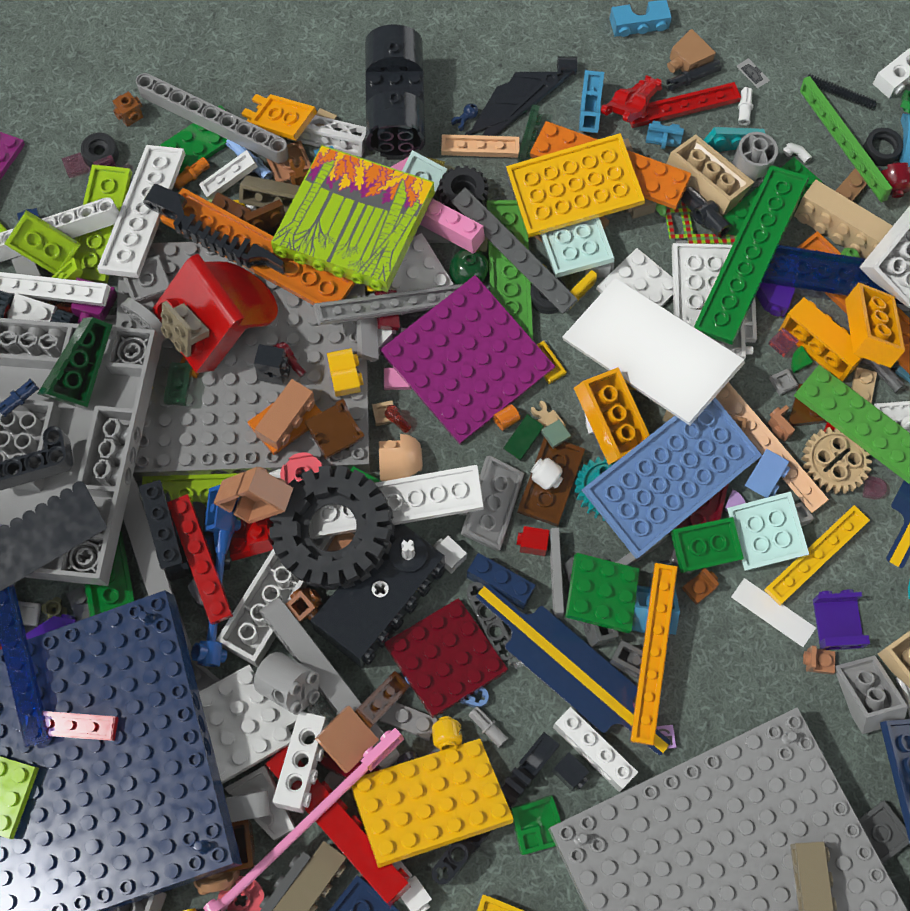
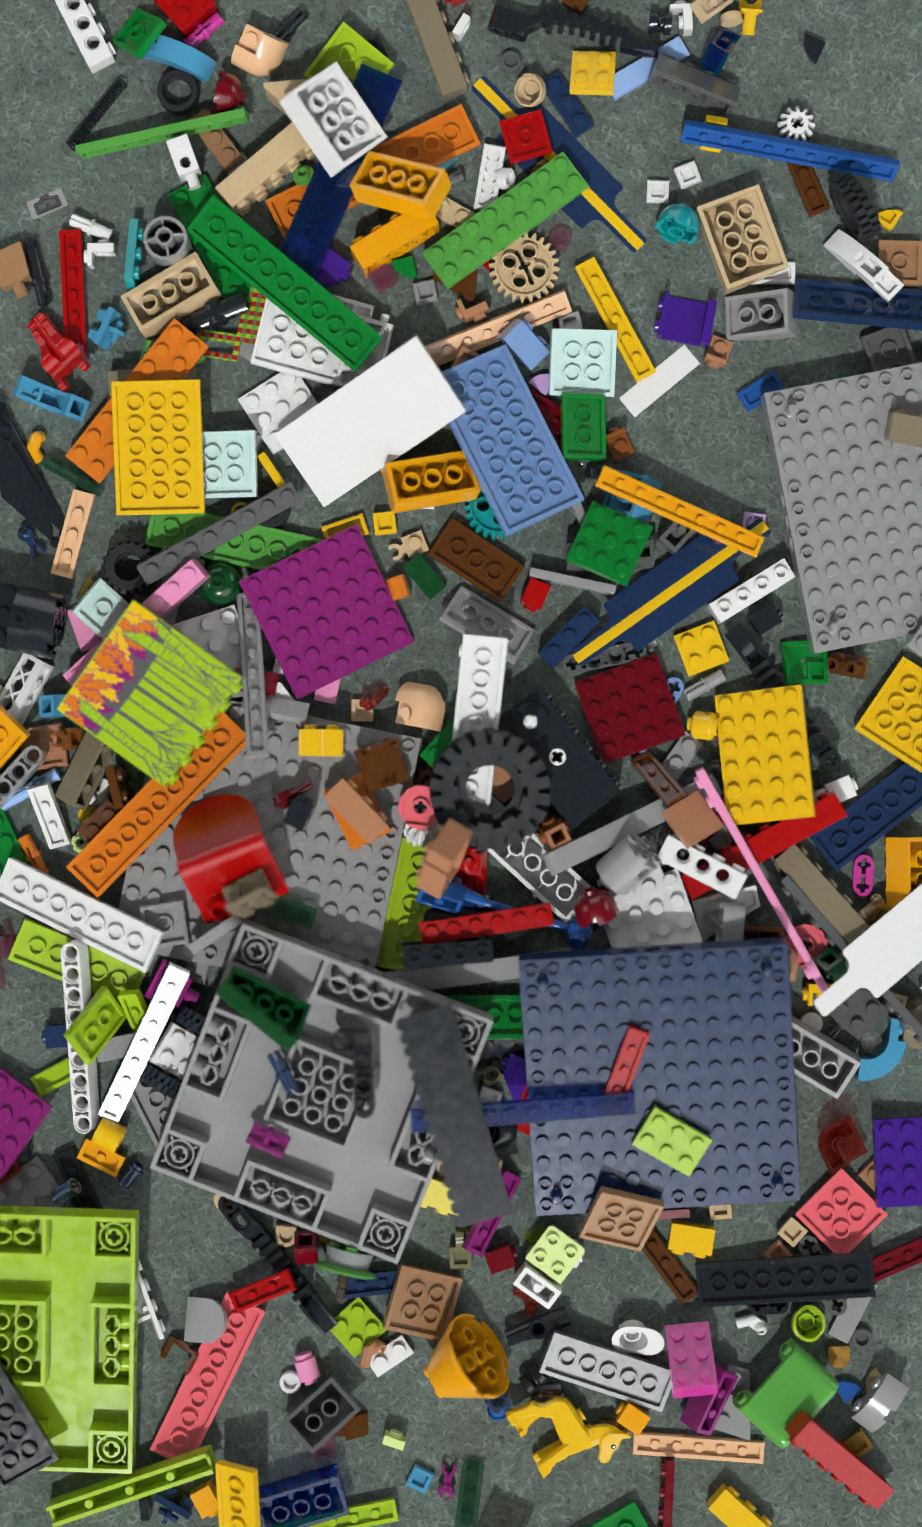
camera: 75 degrees left, 20 degrees up
(171, 205) = (90, 880): black piece -> none
(236, 659) = (594, 906): none -> dark red cylinder
(453, 553) = (528, 681): white brick -> none
(524, 715) = (701, 648): none -> yellow plate
(546, 473) = (473, 564): white head -> none
(546, 869) = (848, 665): none -> reddish brown hips
(553, 102) = (34, 444): none -> light orange arm
(556, 433) = (431, 543): sand green tile -> none
(562, 393) = (384, 523): none -> yellow plate
(727, 112) = (102, 248): none -> white bracket
(788, 702) = (751, 395): none -> blue tile
(798, 150) = (159, 187): white arm -> none
(829, 159) = (182, 156): none -> white torso

